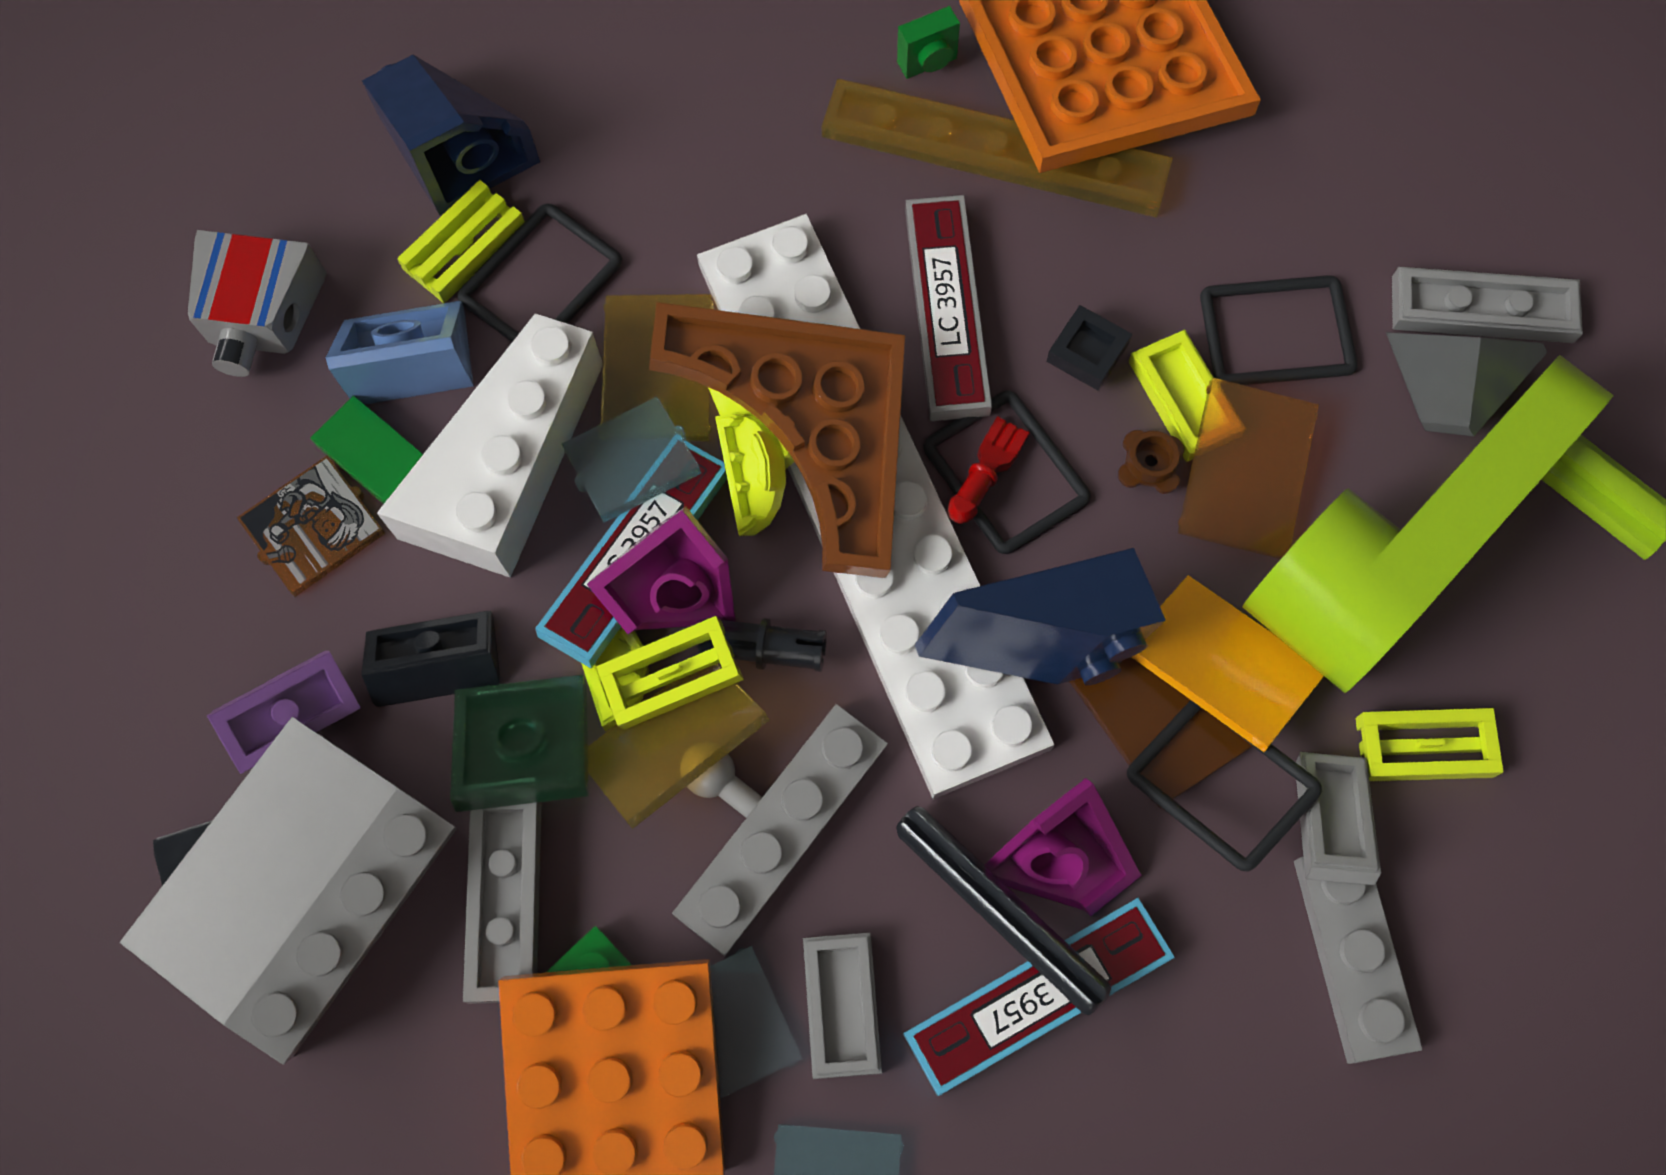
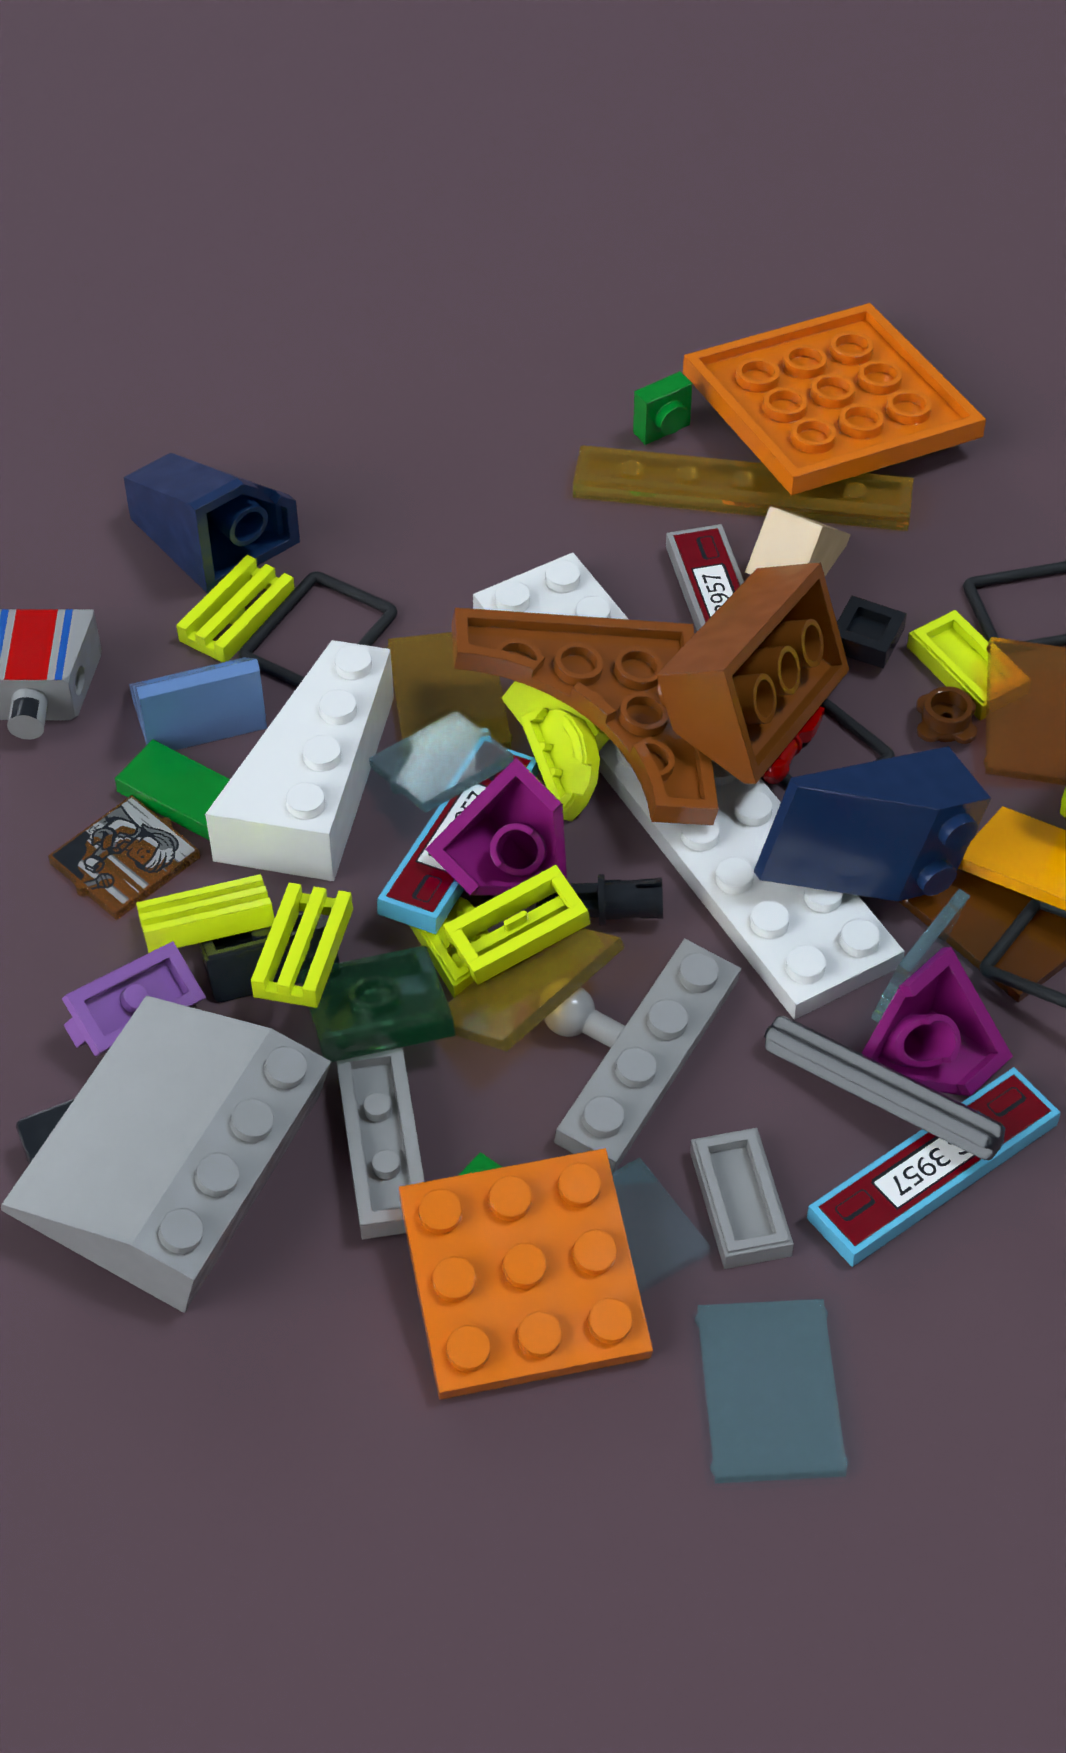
camera: 10 degrees left, 20 degrees down
(374, 602) = (206, 913): none -> neon yellow tile
(452, 620) = (313, 905): none -> neon yellow tile
(958, 403) = (756, 669): none -> dark orange slope
(1032, 241) = (796, 540): none -> tan slope
(1065, 767) = (924, 949): none -> clear light blue piece

